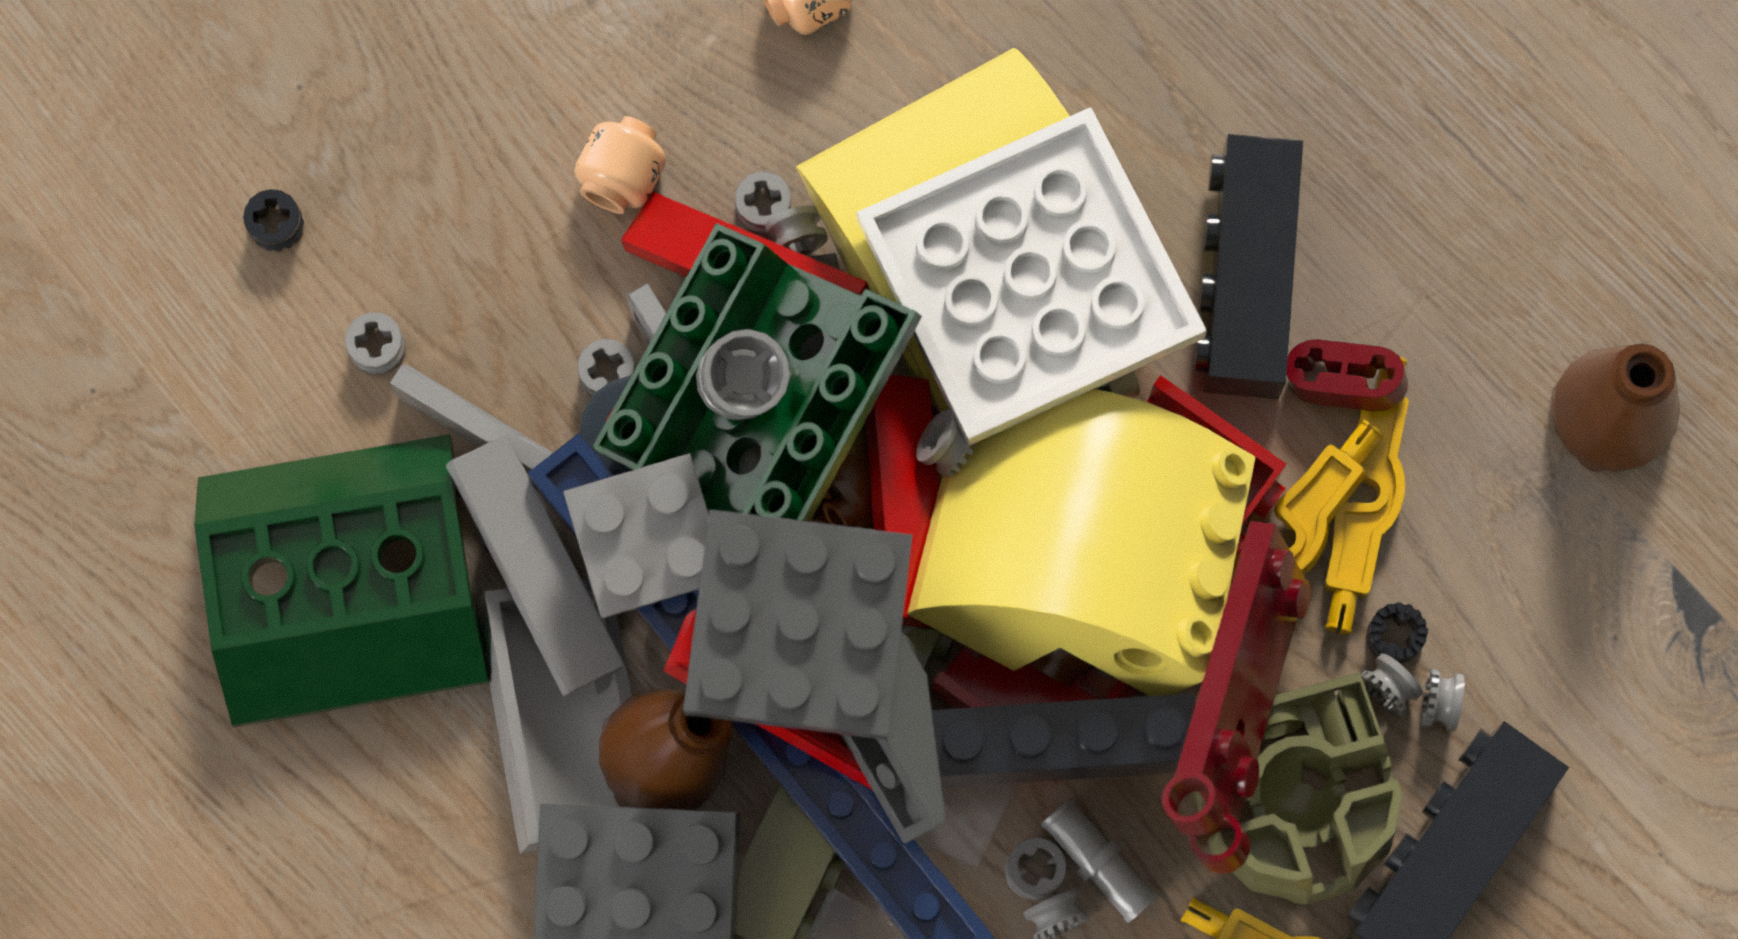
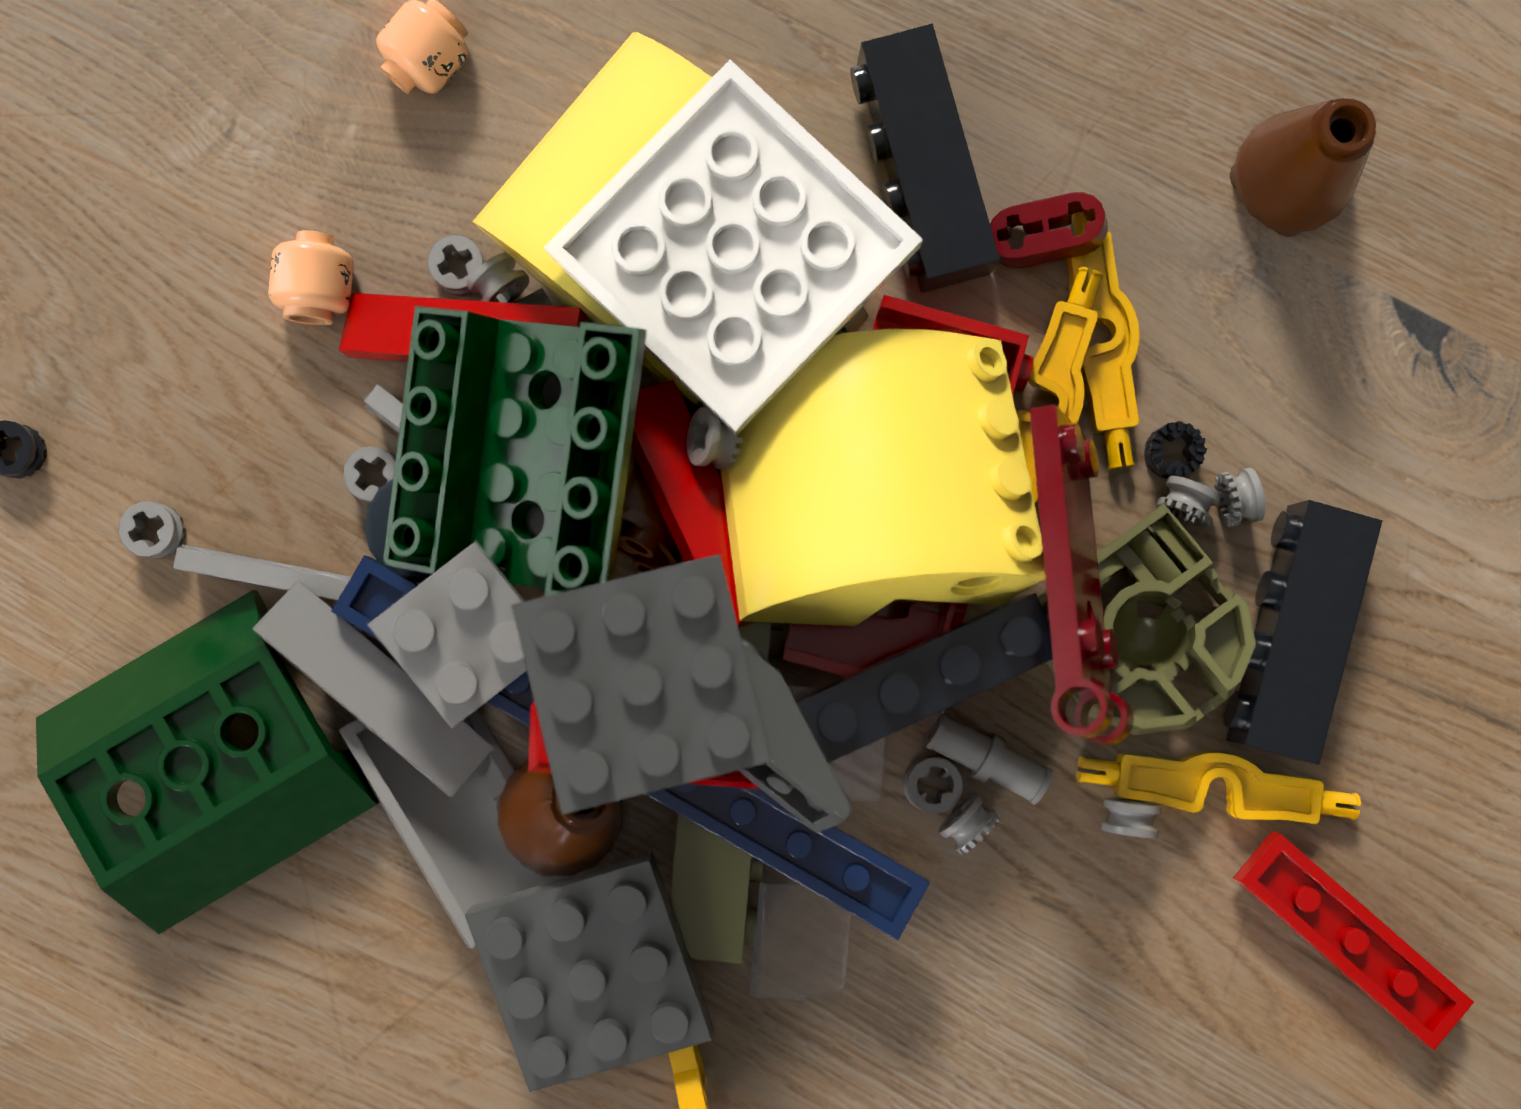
camera: 25 degrees left, 10 degrees up
(742, 375) = (495, 450): light grey wheel -> none

